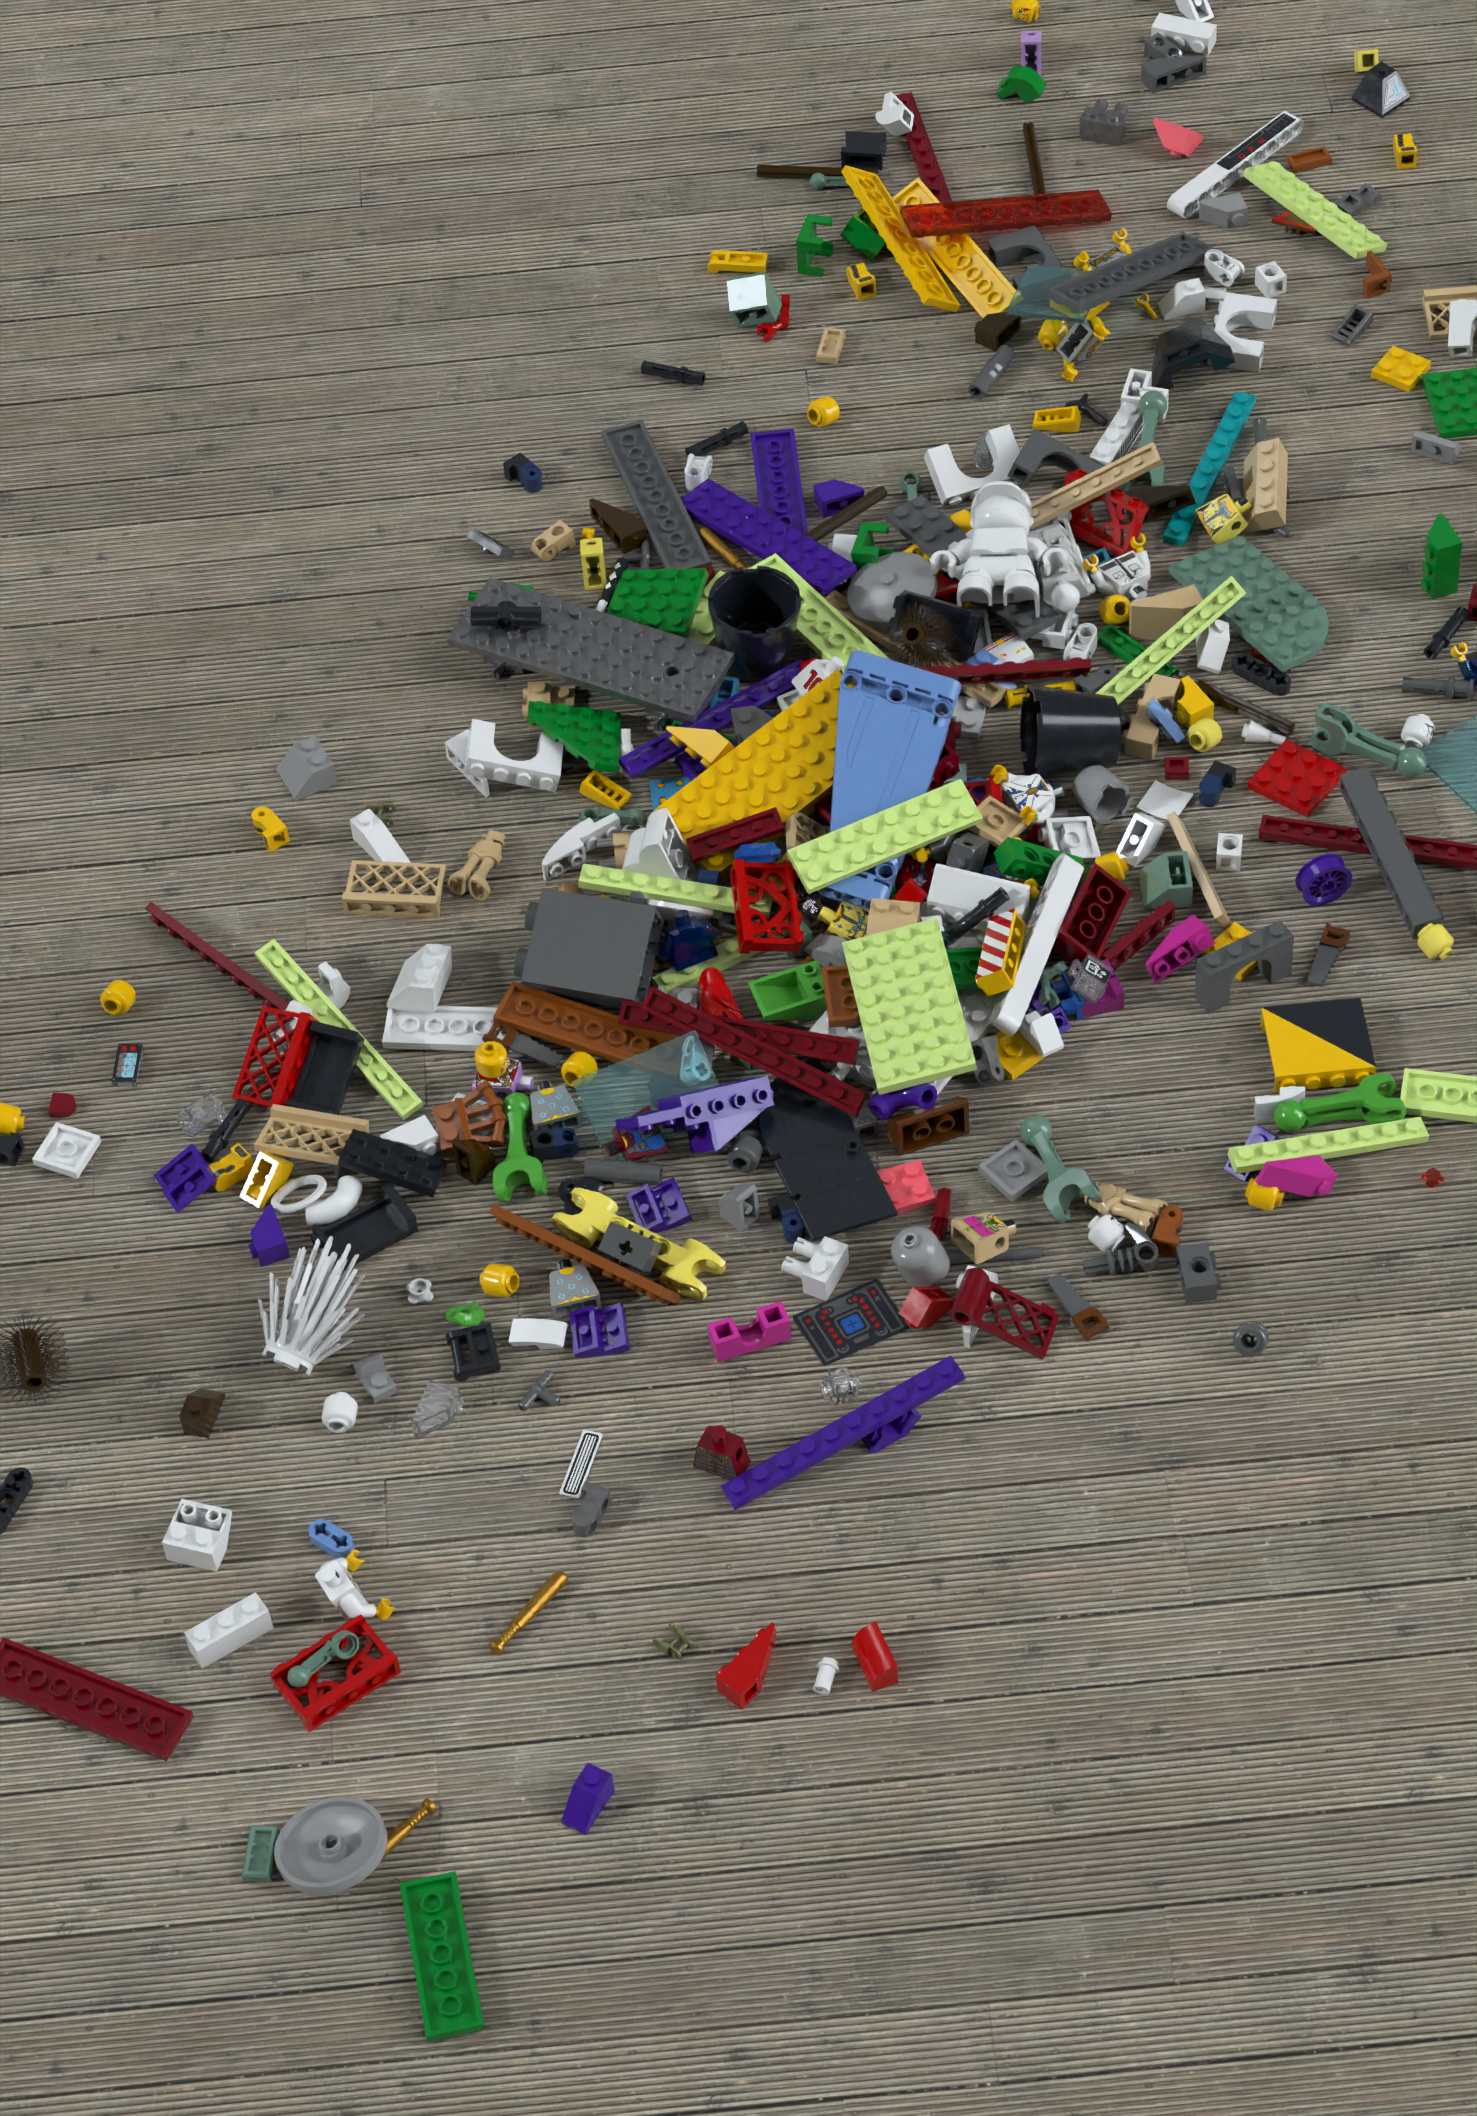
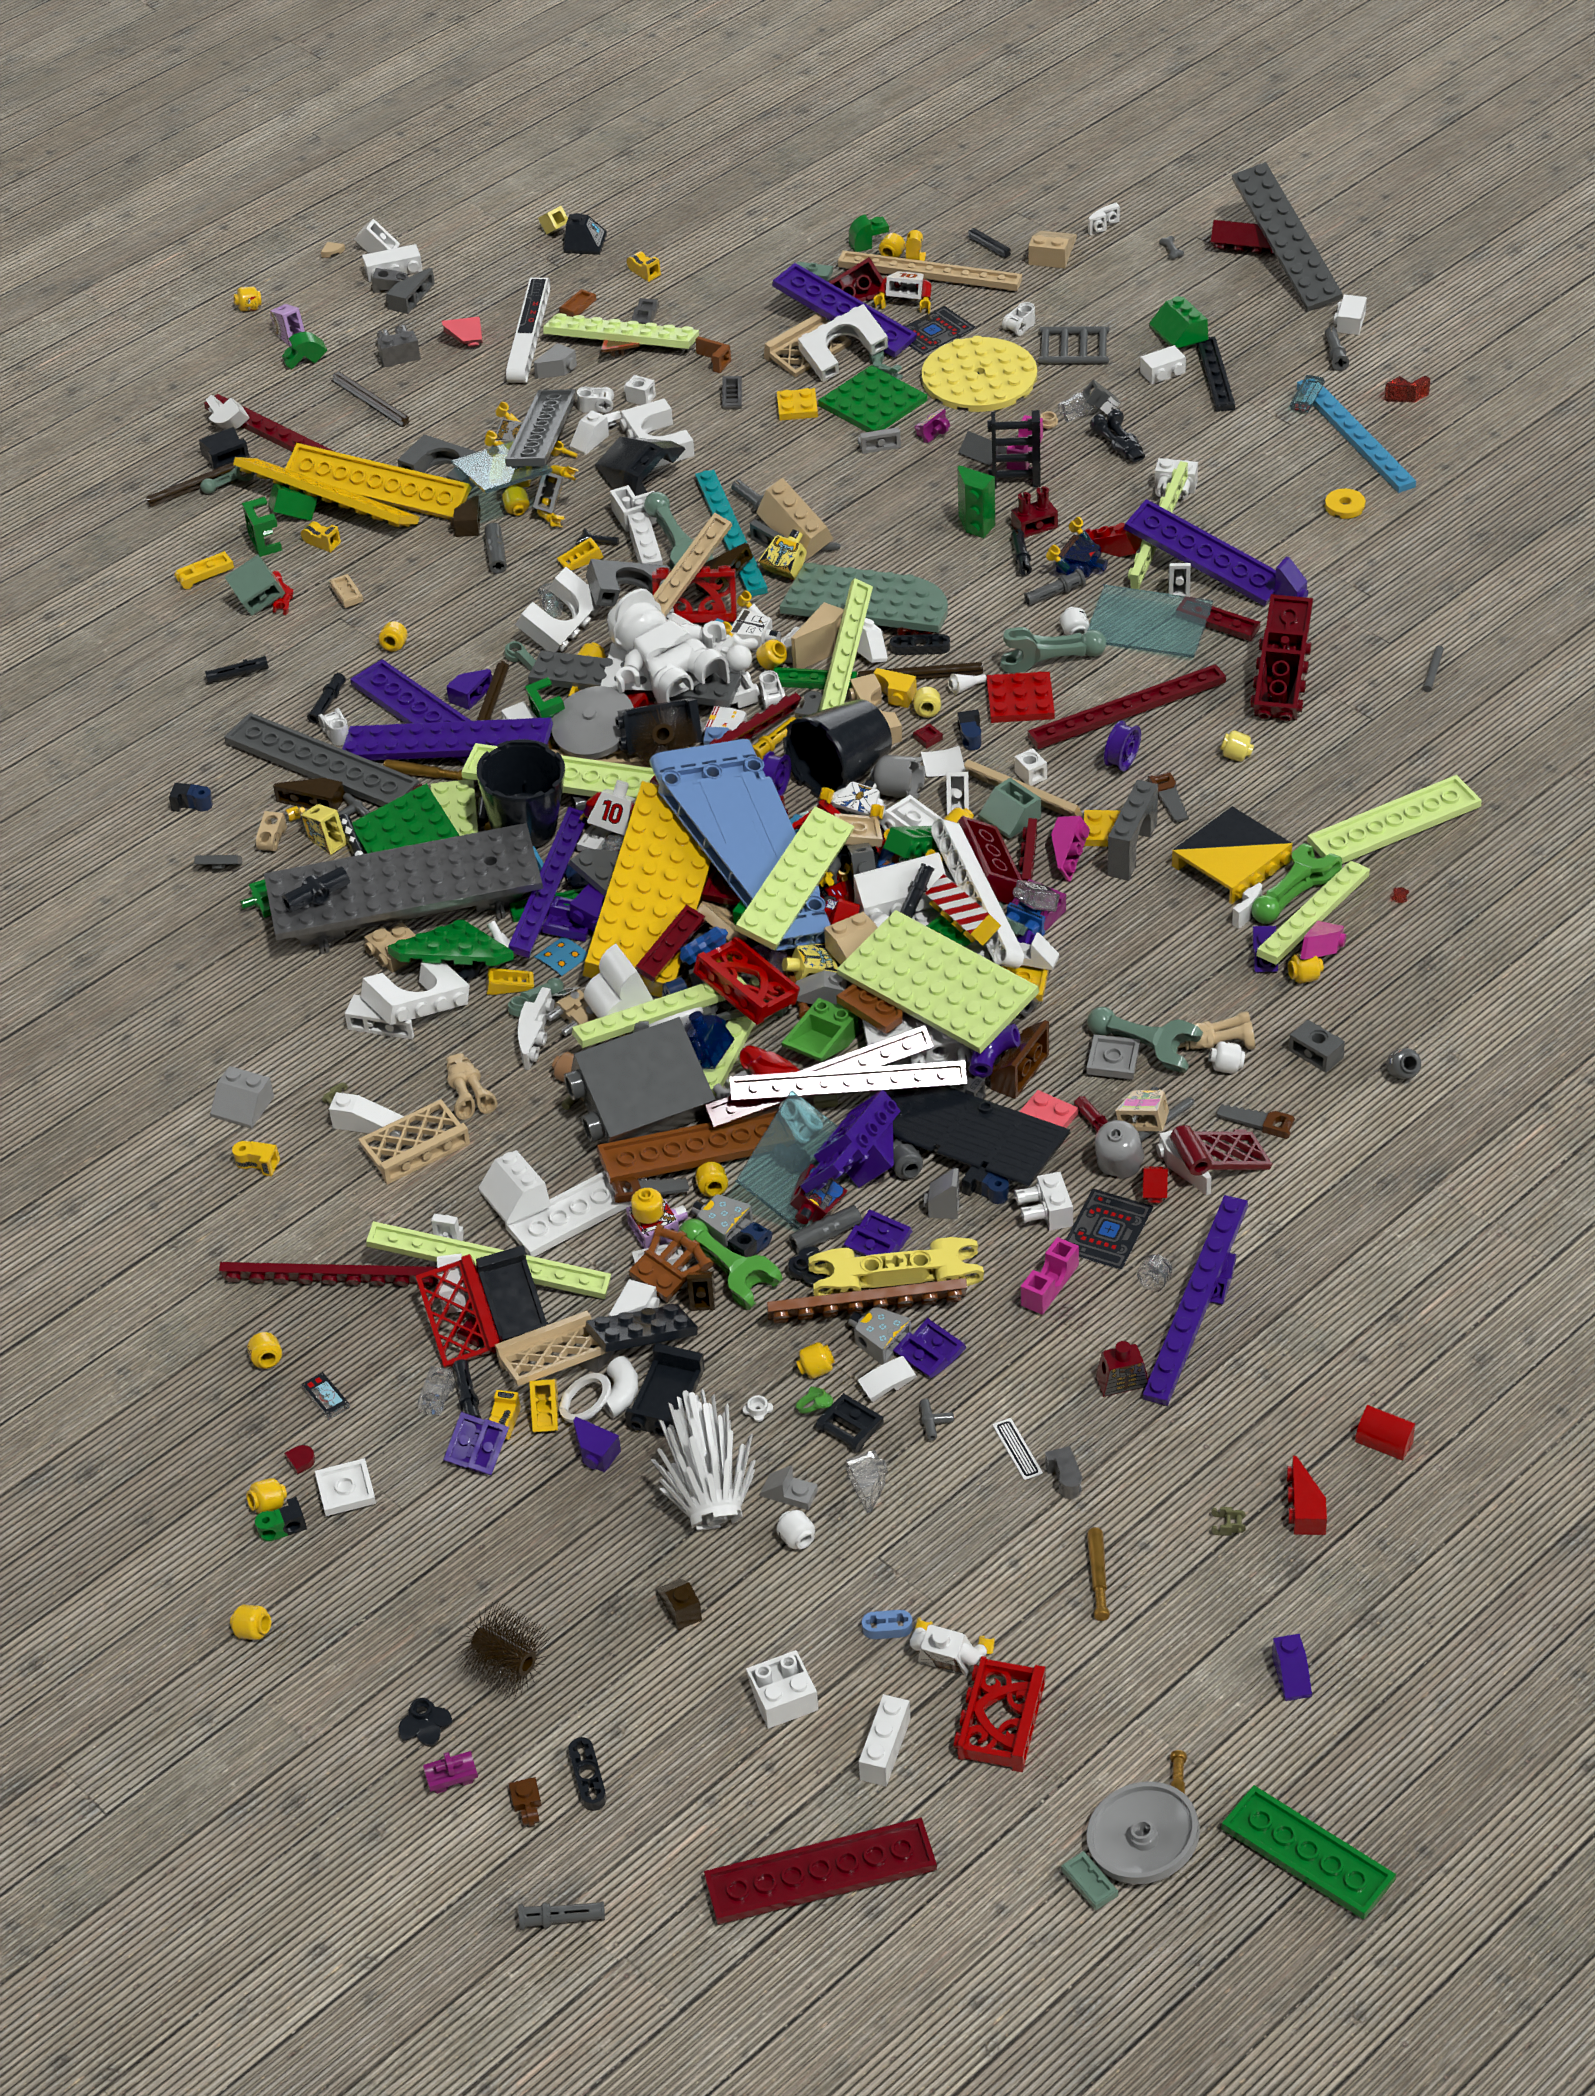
camera: 40 degrees left, 5 degrees down
(299, 1675) = (993, 1687): sand green piece -> none
(643, 1253) = (889, 1265): dark grey brick -> none
(701, 743) = (576, 896): yellow slope -> none
(827, 1669) = (1360, 1465): white pin -> none
(992, 729) = (778, 769): none -> dark purple wheel
(1005, 213) = (393, 436): clear red plate -> none
(1127, 1259) = (1260, 1065): dark grey piece -> none
(1164, 717) = (887, 703): light blue plate -> none
(1167, 1230) = (1266, 1034): dark orange leg -> none
(1389, 850) = (1147, 704): dark grey brick -> none

